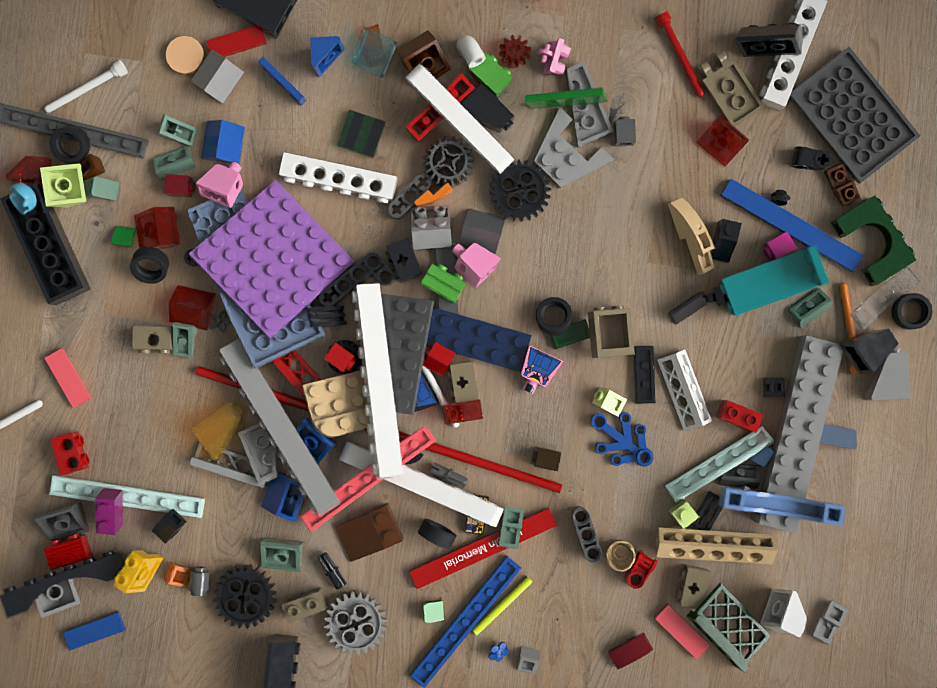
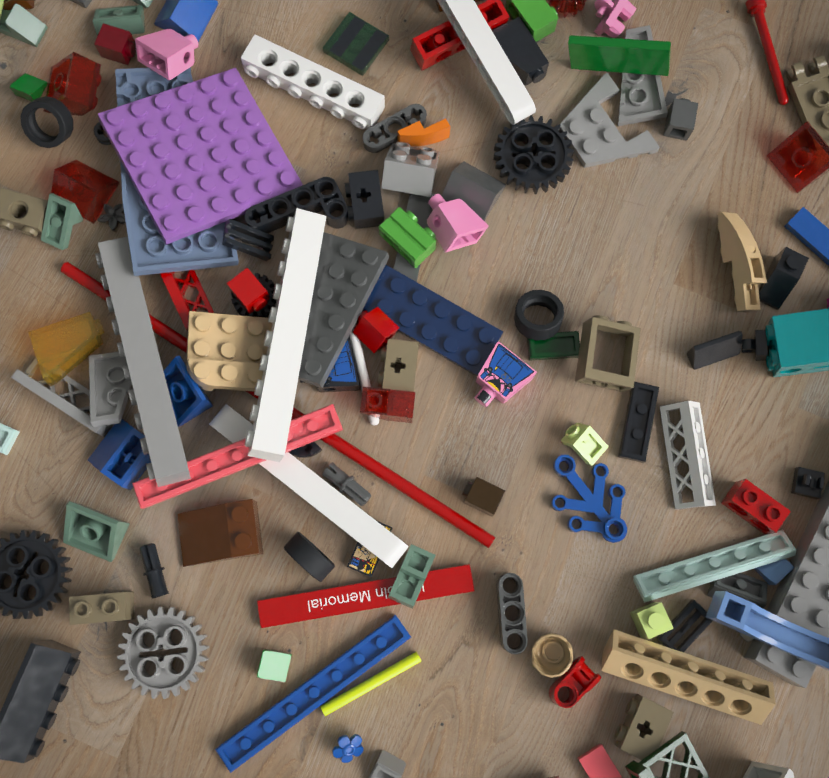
camera: 10 degrees right, 10 degrees down
(441, 164) = (463, 89): dark grey gear -> none

